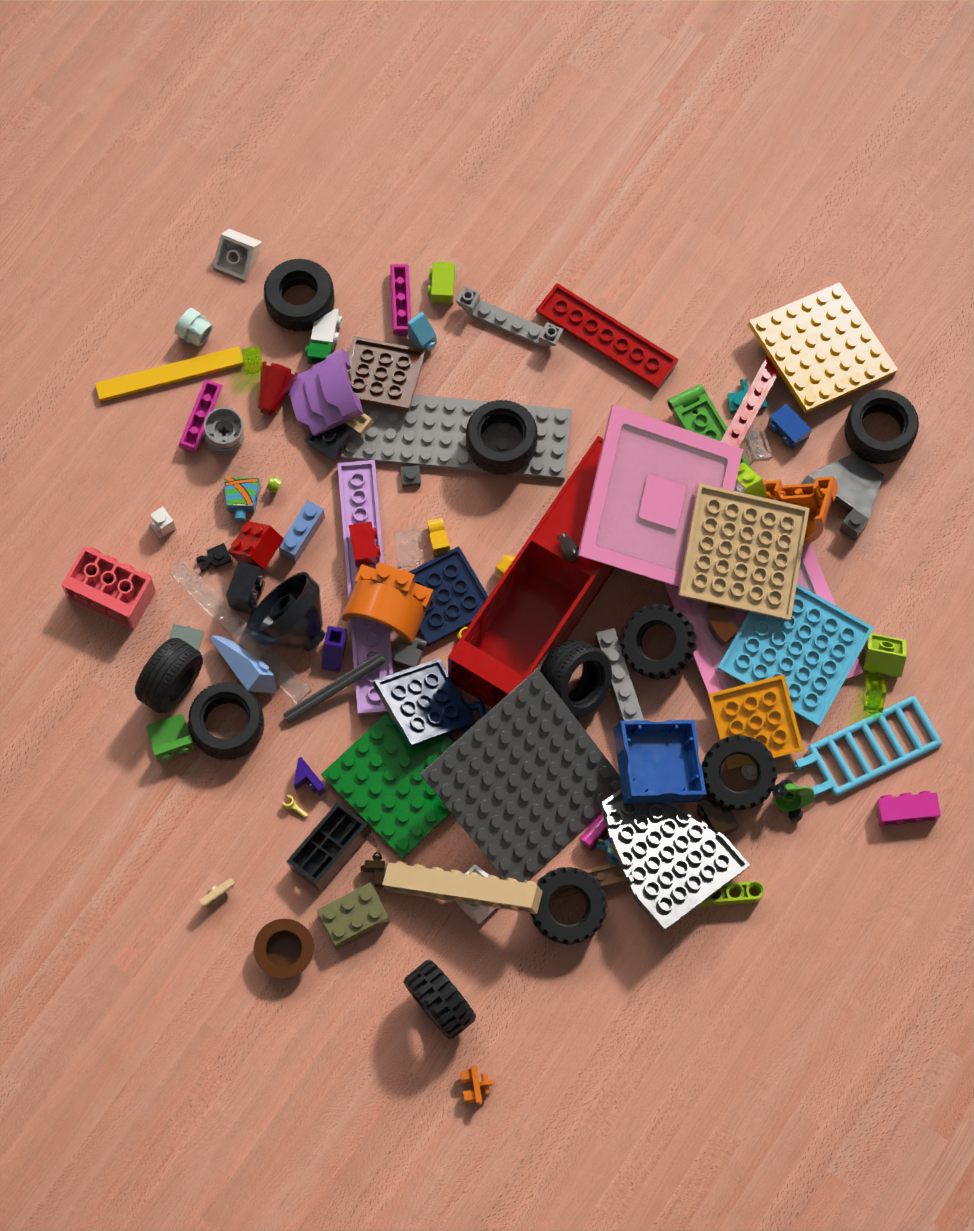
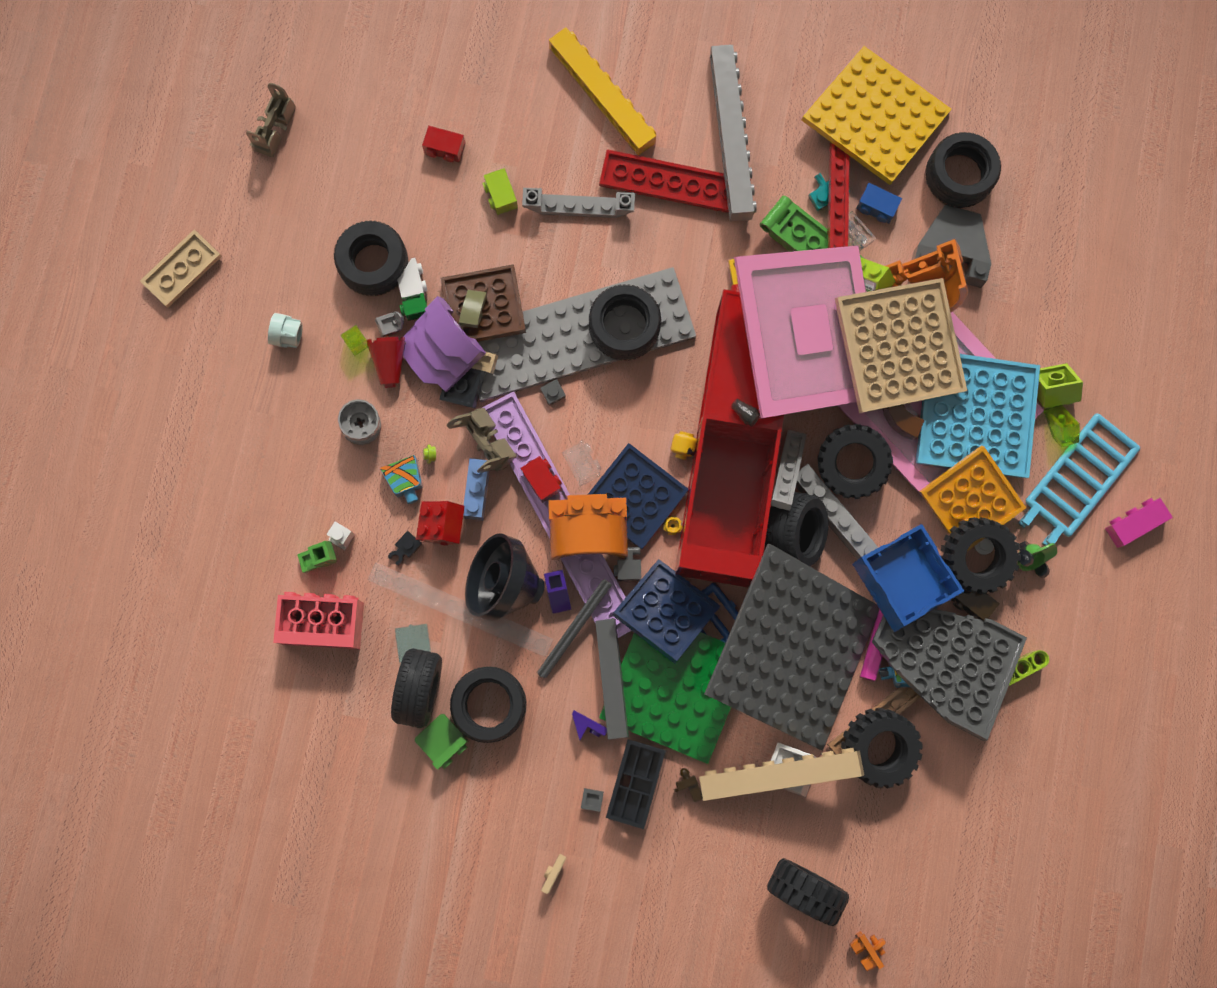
camera: 25 degrees left, 10 degrees up
(127, 239) = (181, 268): none -> tan plate
(134, 532) = (317, 556): none -> bright green brick
(169, 374) = (281, 385): yellow tile -> none
(195, 426) = (329, 415): dark pink brick -> none
(236, 254) = (292, 240): white slope -> none
(245, 588) = (448, 568): black brick -> none
(249, 669) = (486, 646): light blue wedge -> none
(277, 139) = (280, 110): none -> dark tan piece
(282, 845) = (592, 799): none -> dark grey plate
(283, 948) = (639, 901): reddish brown hose -> none
(291, 358) = (390, 323): none -> light grey plate
(292, 805) = (588, 757): light yellow hand -> none
(330, 476) = (481, 425): none -> dark tan piece
(347, 743) = (612, 679): none -> dark grey tile
(353, 915) = (688, 840): olive brick -> none
(368, 371) = (472, 308): none -> olive slope
(400, 298) = (468, 223): dark pink brick -> none
(410, 222) = (443, 144): none -> red brick
(421, 332) = (503, 249): medium azure slope -> none
(438, 536) = (605, 441): yellow leg -> none
(576, 231) = (602, 91): none -> yellow brick
(591, 621) = (788, 470): none -> light grey plate
(677, 312) = (731, 133): none -> light grey brick

